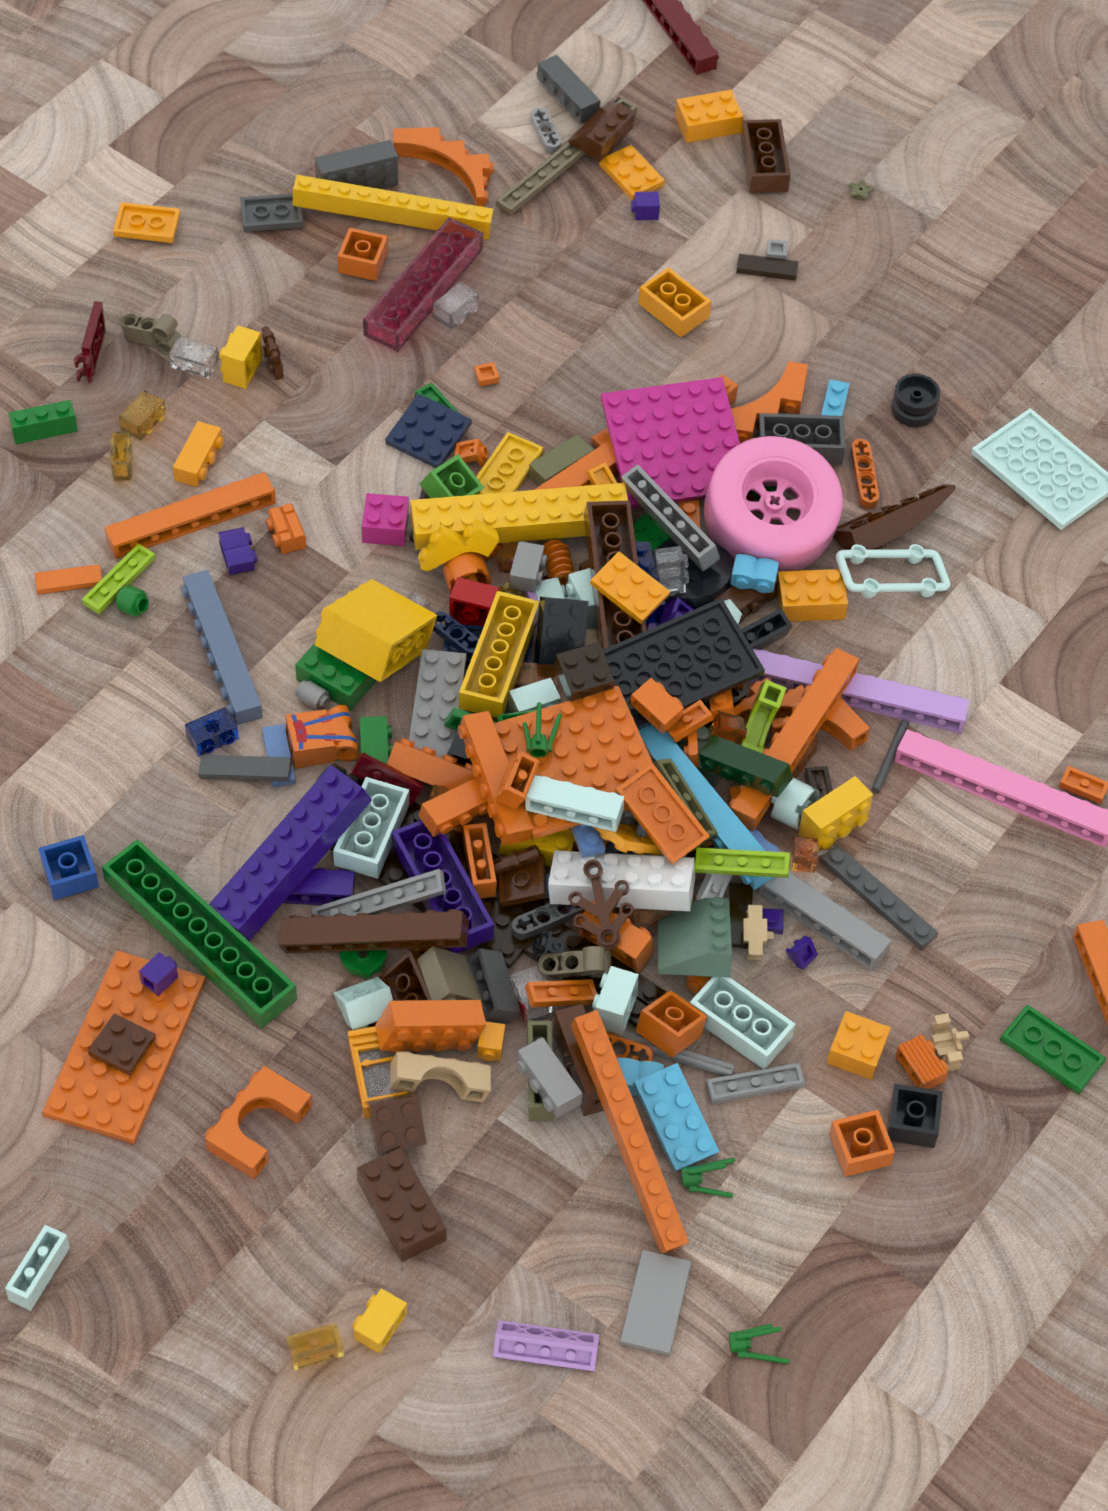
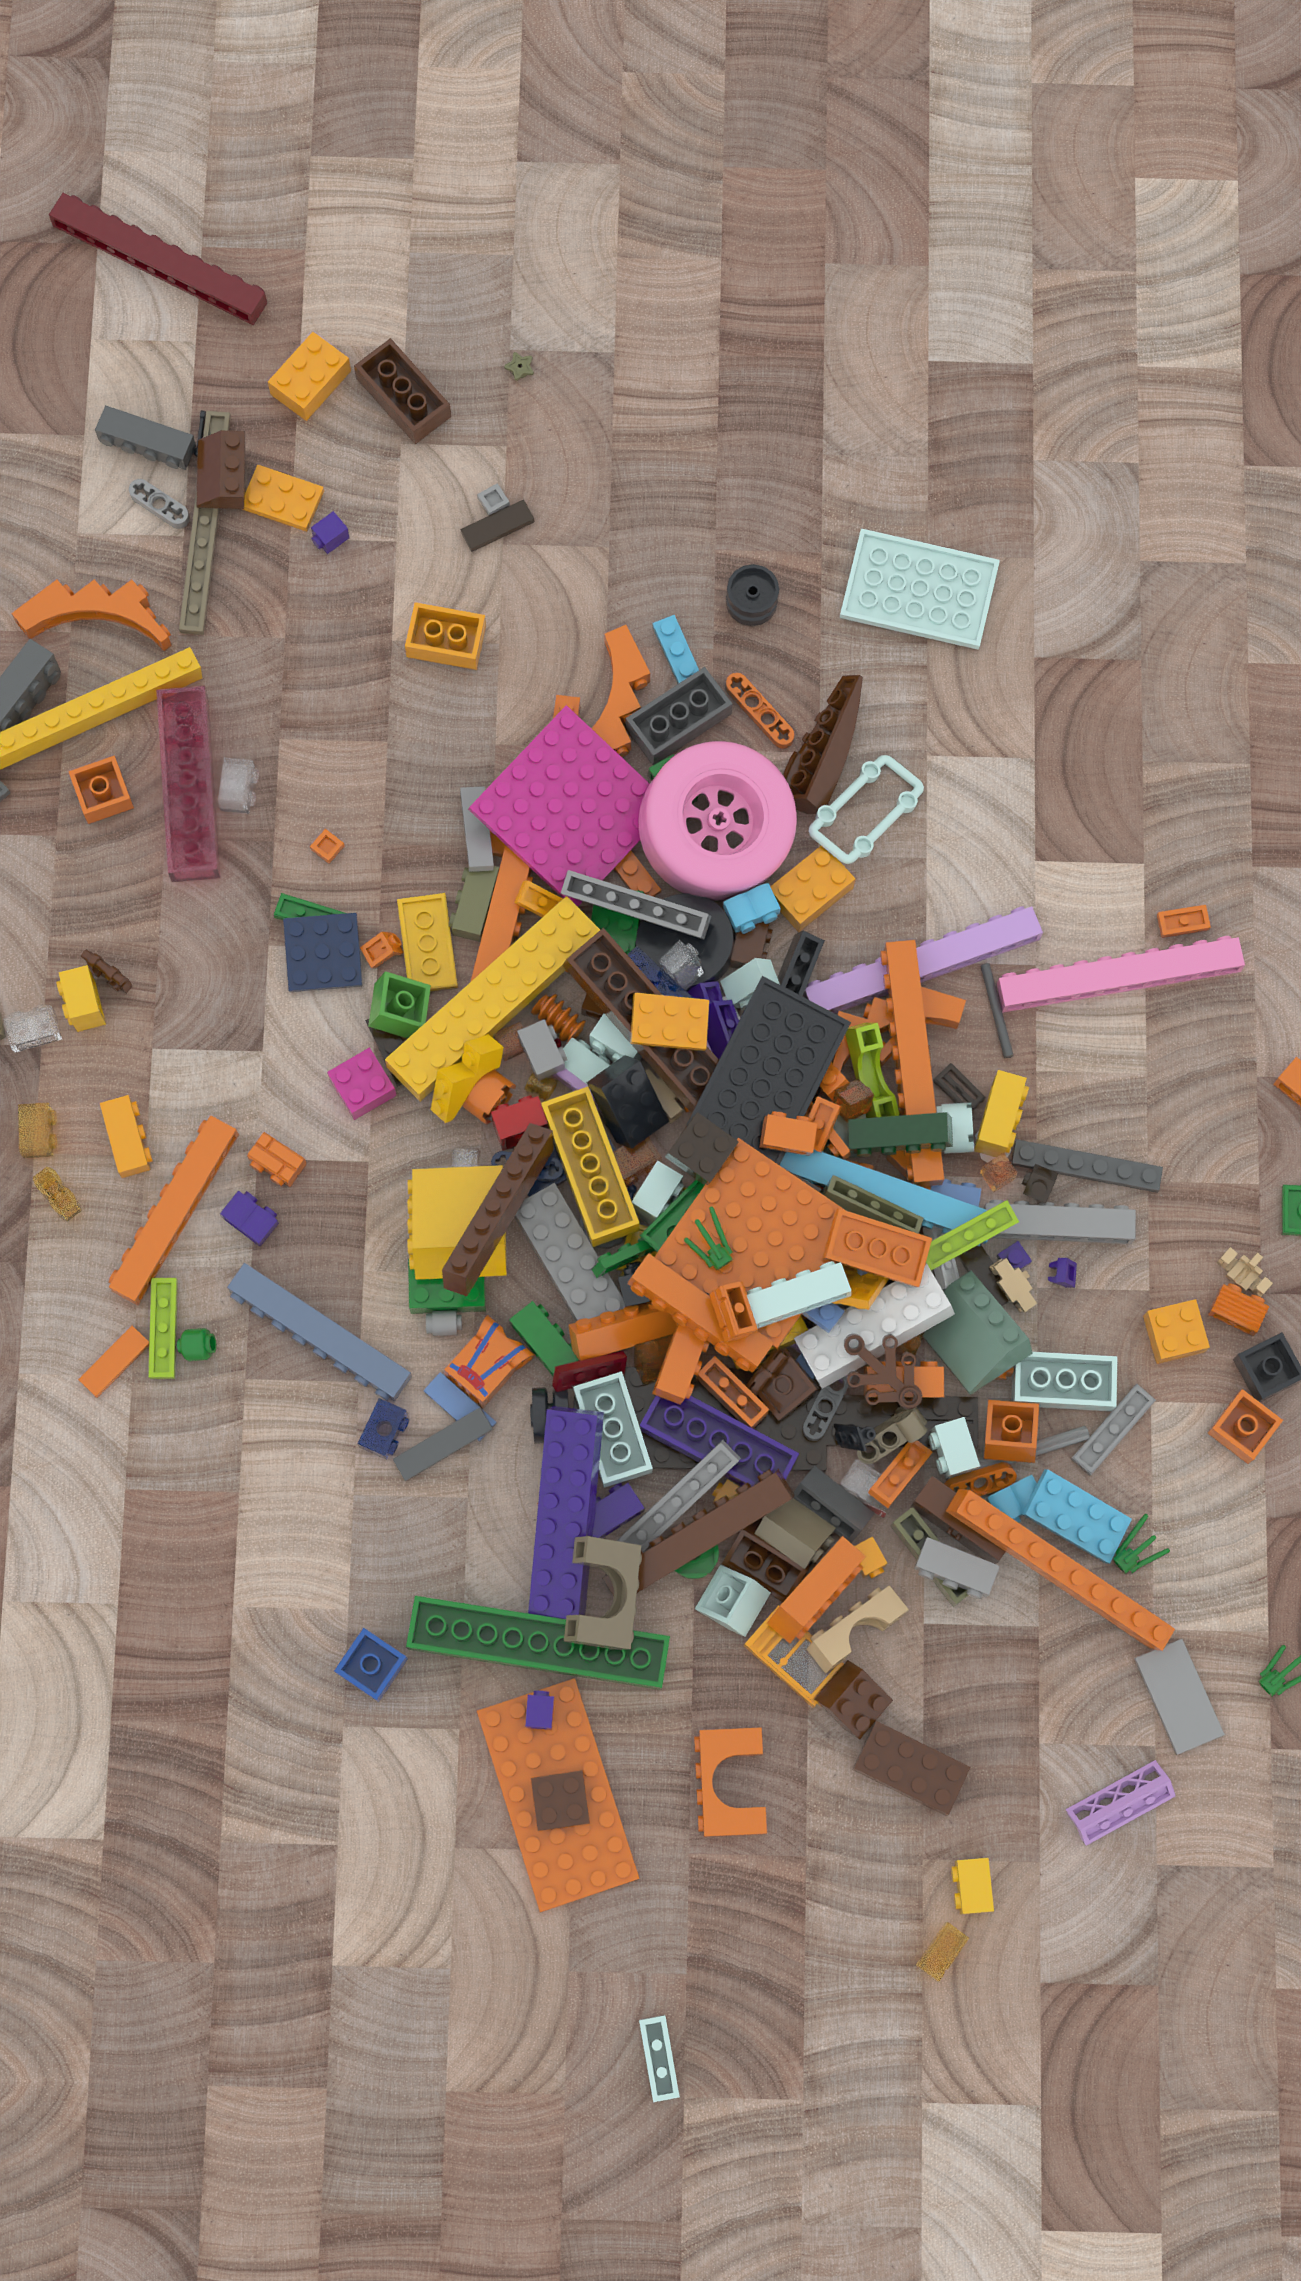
camera: 35 degrees left, 20 degrees up
(299, 904) = (621, 1564): none -> dark tan arch
(405, 622) = (498, 1210): none -> reddish brown brick
(590, 427) = (476, 833): none -> light grey tile
(830, 879) = (1039, 1183): none -> dark brown brick

